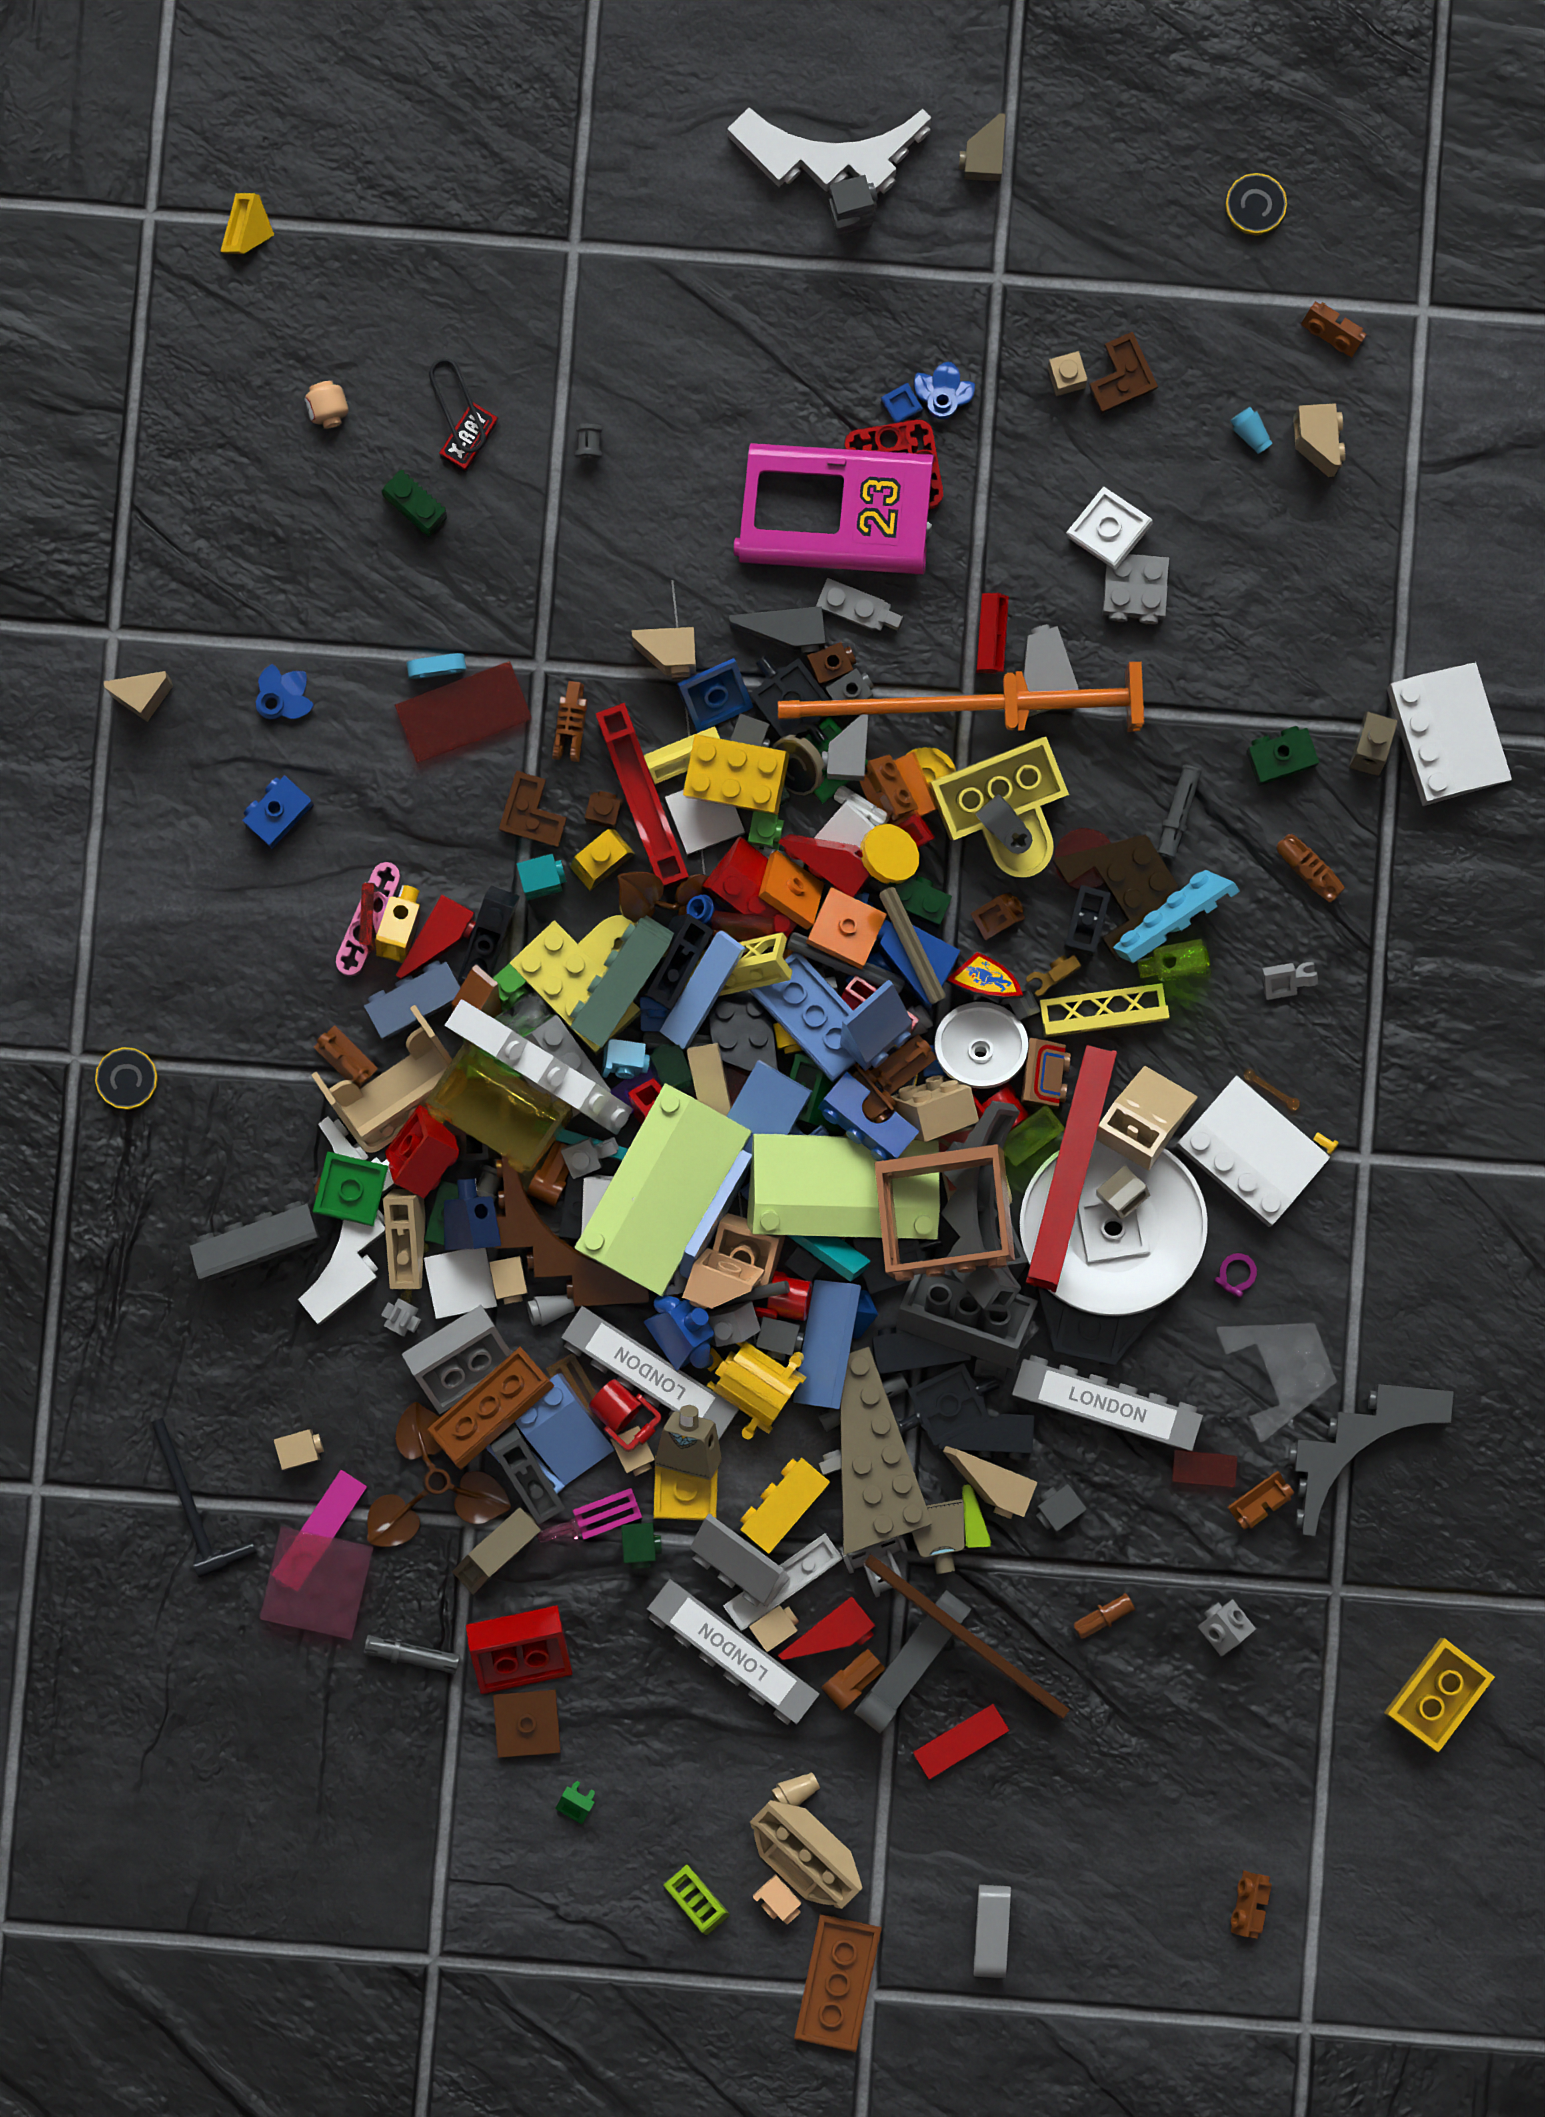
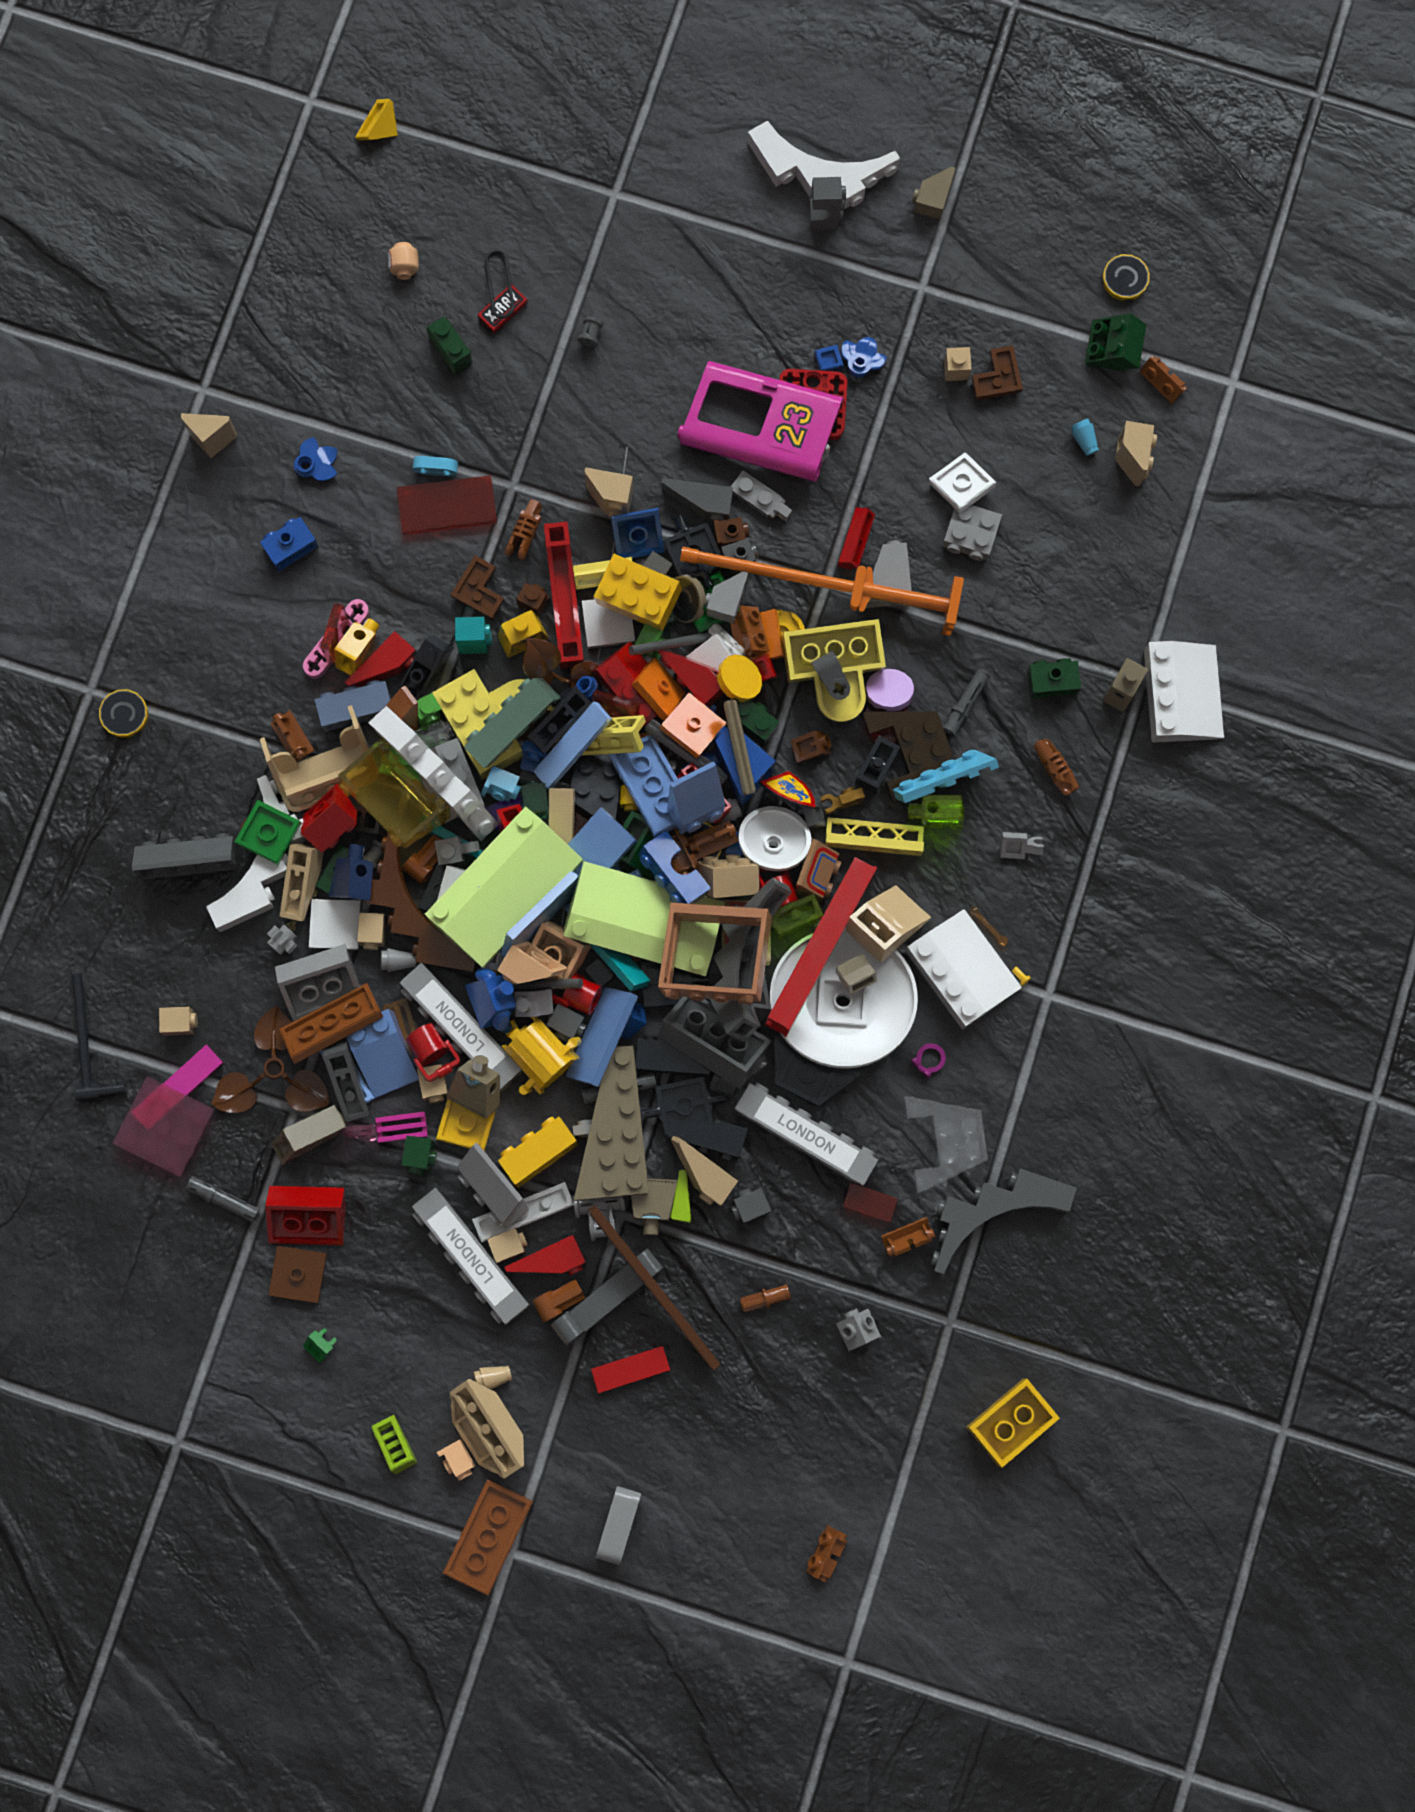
camera: 10 degrees right, 5 degrees down
(791, 828) = (669, 643): none -> dark grey bar
(1080, 820) = (889, 690): none -> lavender tile
(1263, 296) = (1116, 342): none -> dark green slope

